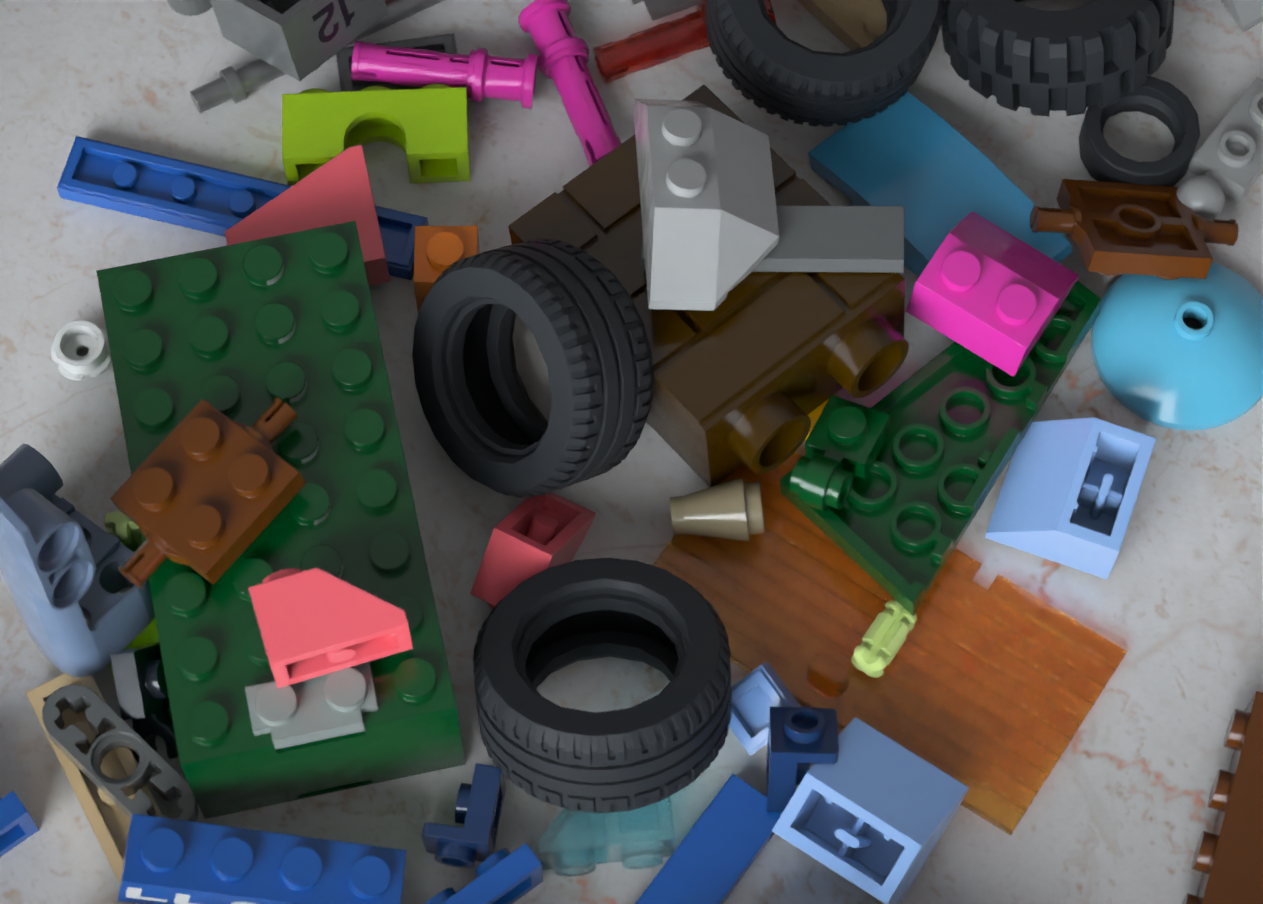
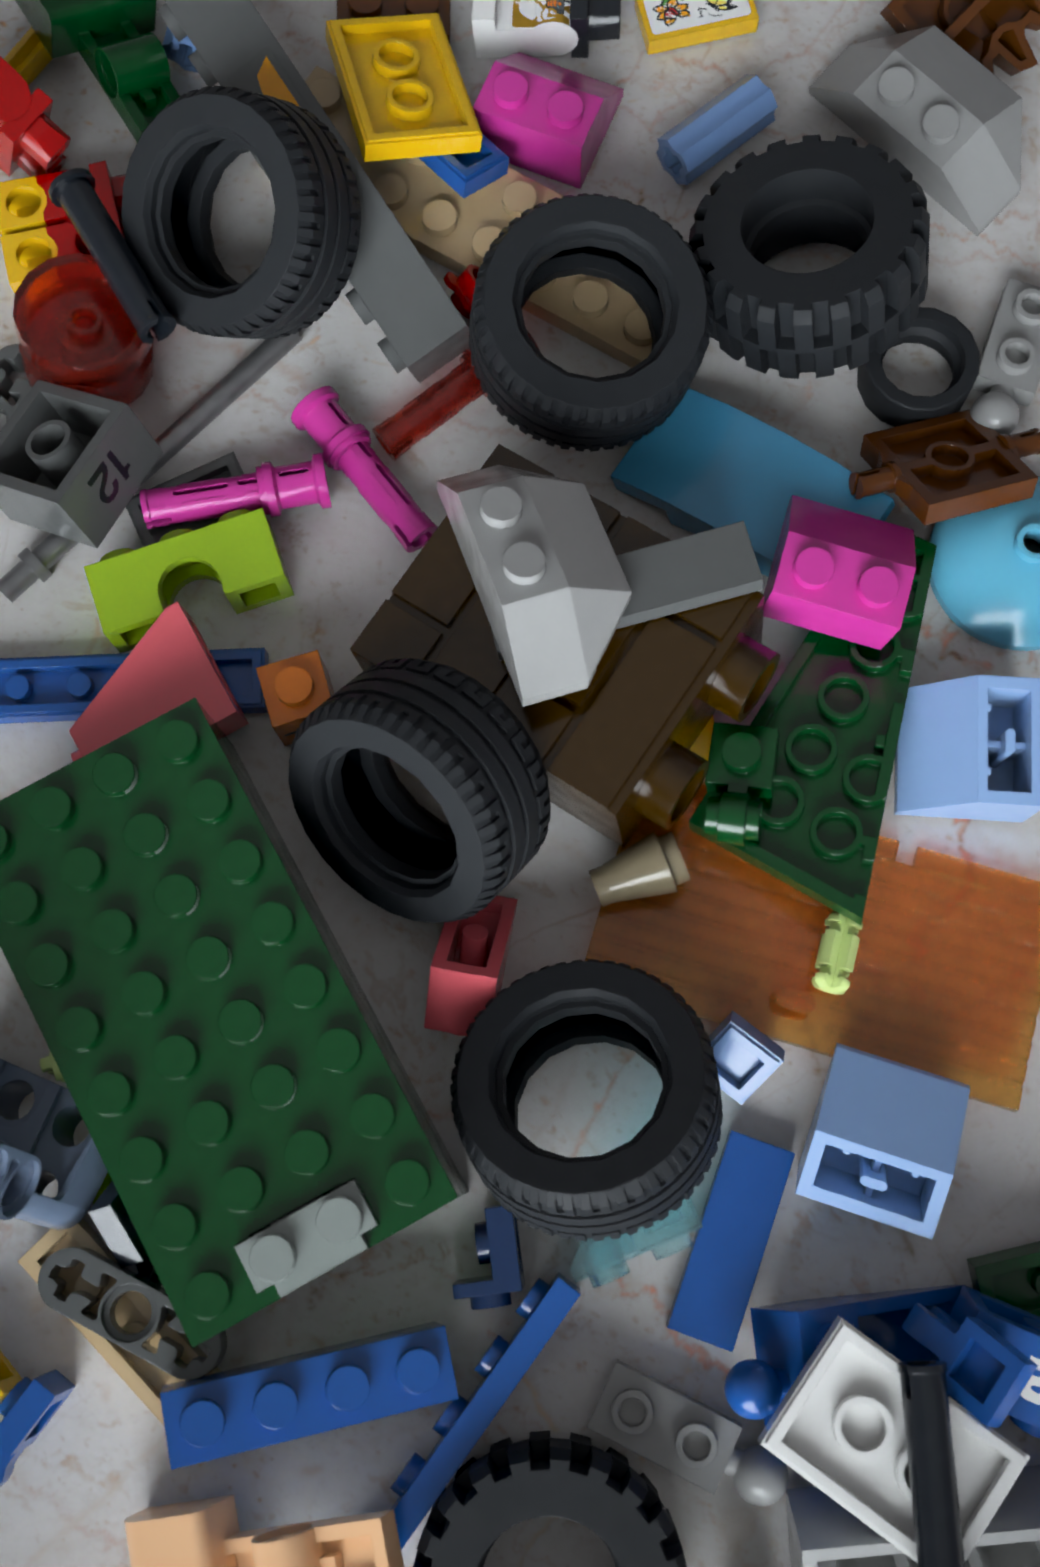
camera: 10 degrees left, 10 degrees up
(208, 491) = (130, 1050): reddish brown plate -> none
(323, 624) = (288, 1171): coral slope -> none
(794, 741) = (790, 1095): dark blue bracket -> none

